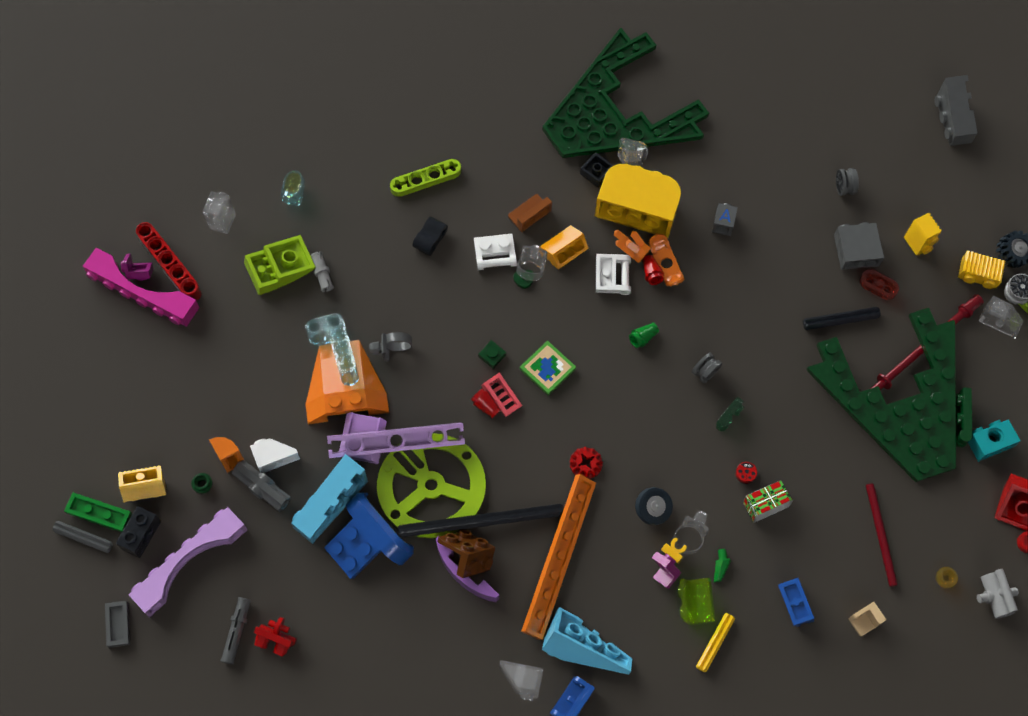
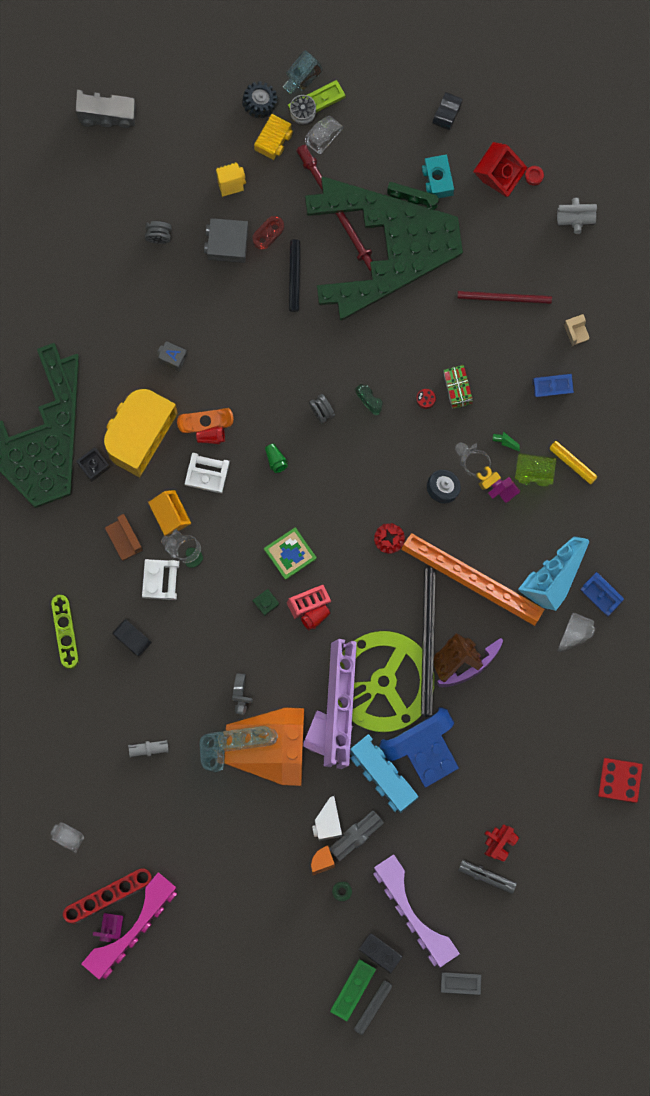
camera: 75 degrees left, 10 degrees up
(142, 484) = (336, 944): yellow brick -> none
(279, 264) = (132, 788): lime slope -> none
(293, 188) = (51, 762): clear light blue rock -> none
(632, 152) = (85, 426): clear slope -> none
(635, 249) = (183, 448): orange rock -> none
(953, 578) = (555, 248): clear yellow plate -> none

